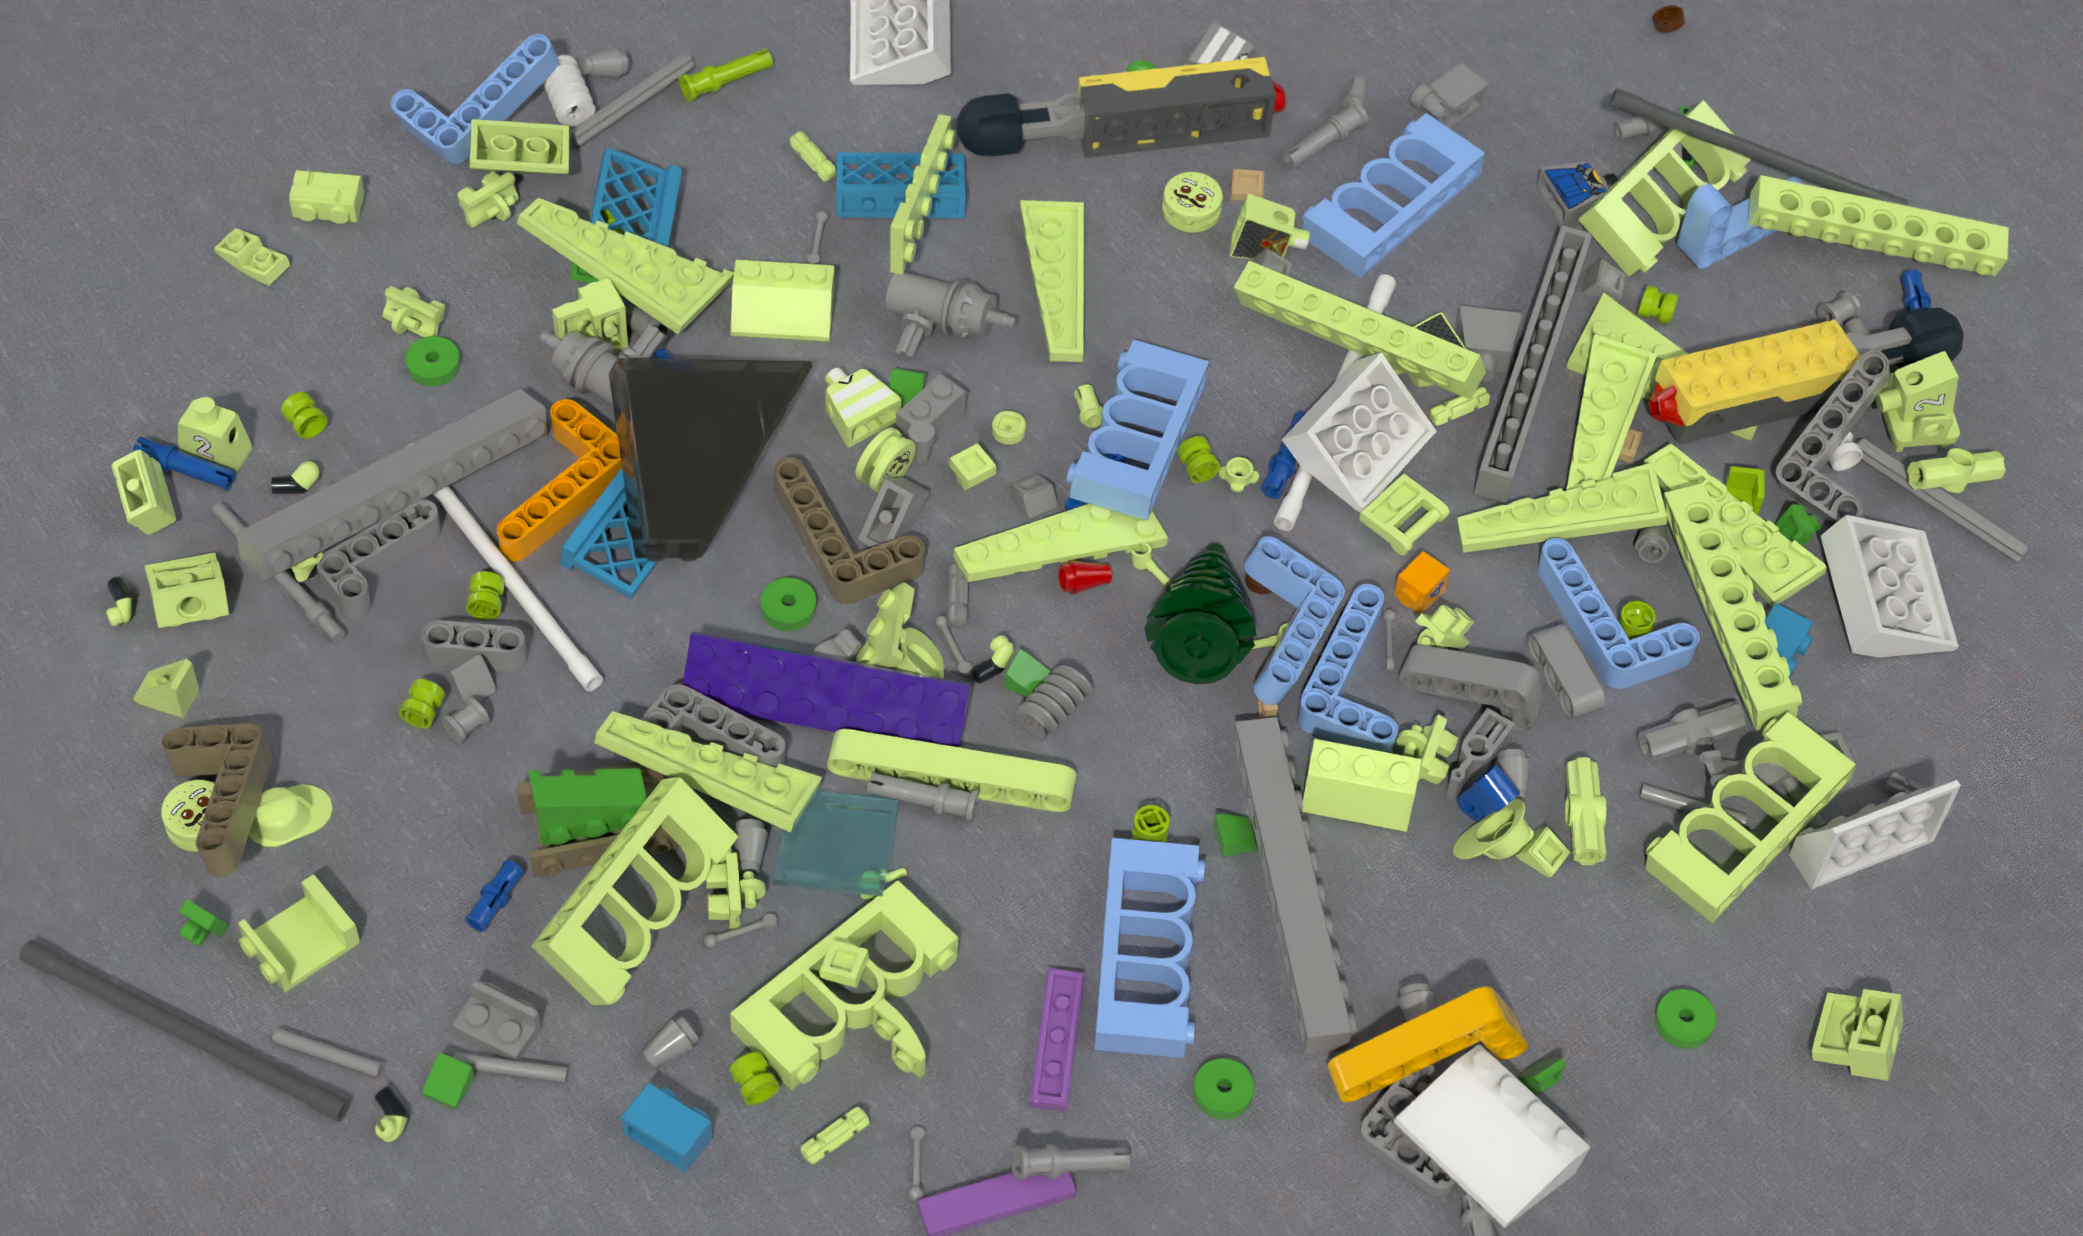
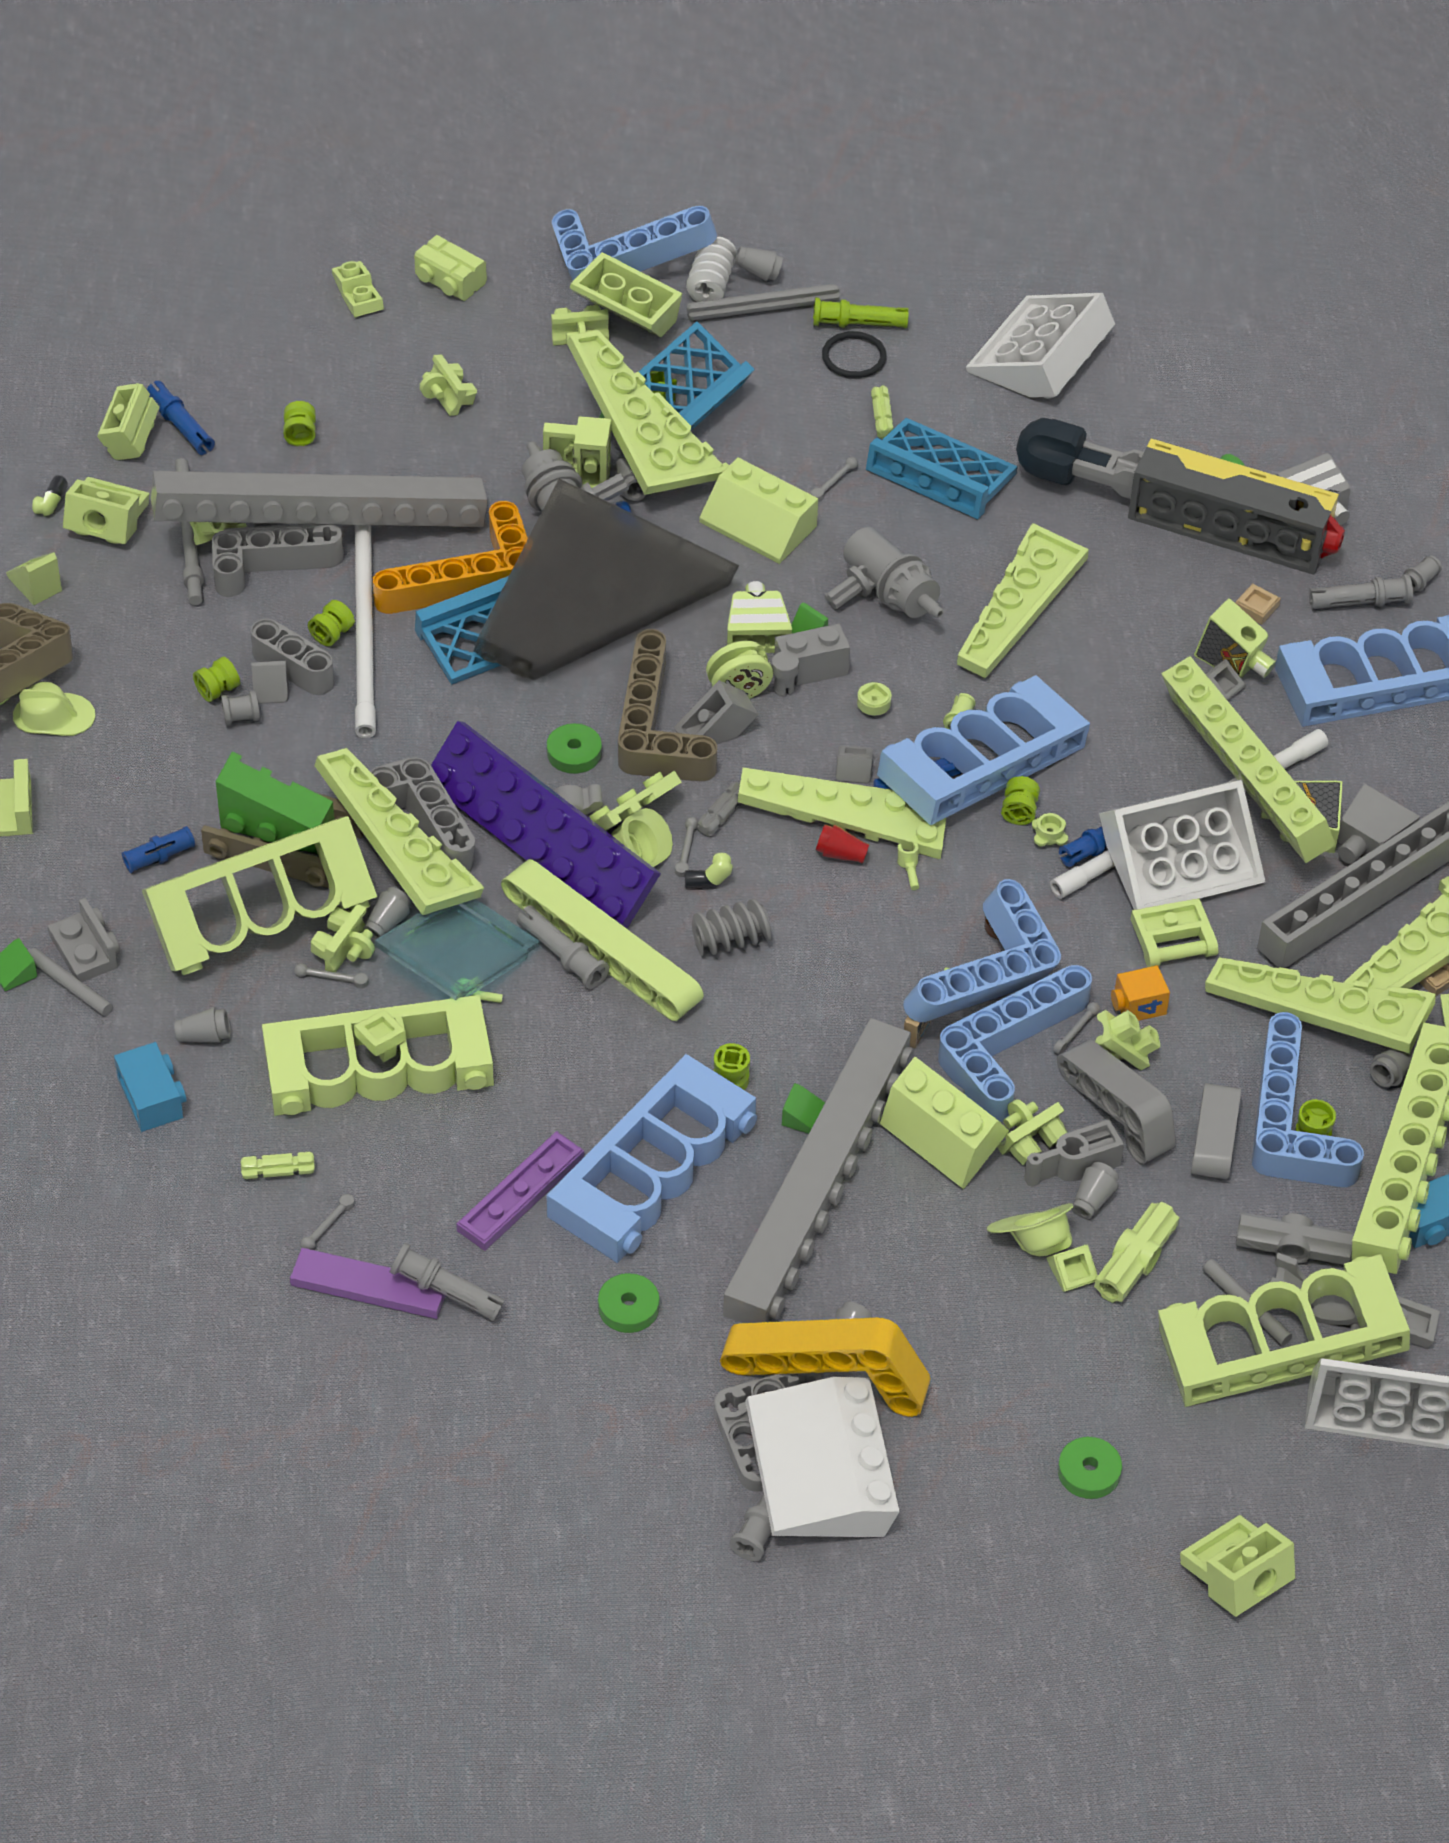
camera: 35 degrees right, 5 degrees down
(213, 434) = (214, 404): yellowish green torso -> none
(298, 482) = (266, 465): arm -> none
(436, 372) = (436, 430): bright green piece -> none
(752, 134) = (854, 374): none -> black piece
(752, 1075) = (246, 1089): lime wheel -> none
(906, 1047) = (386, 1130): yellowish green slope -> none
(909, 221) = (902, 486): yellowish green wing -> none
(972, 466) = (813, 712): yellowish green tile -> none
(1025, 674) = (724, 891): bright green slope -> none
(1192, 202) = (1190, 593): yellowish green head -> none
(1202, 621) = (905, 921): dark green plant -> none
(1458, 407) = (1300, 871): yellowish green axle -> none
(1488, 794) = (1051, 1186): blue piece -> none
(1542, 1075) = (916, 1443): bright green slope -> none

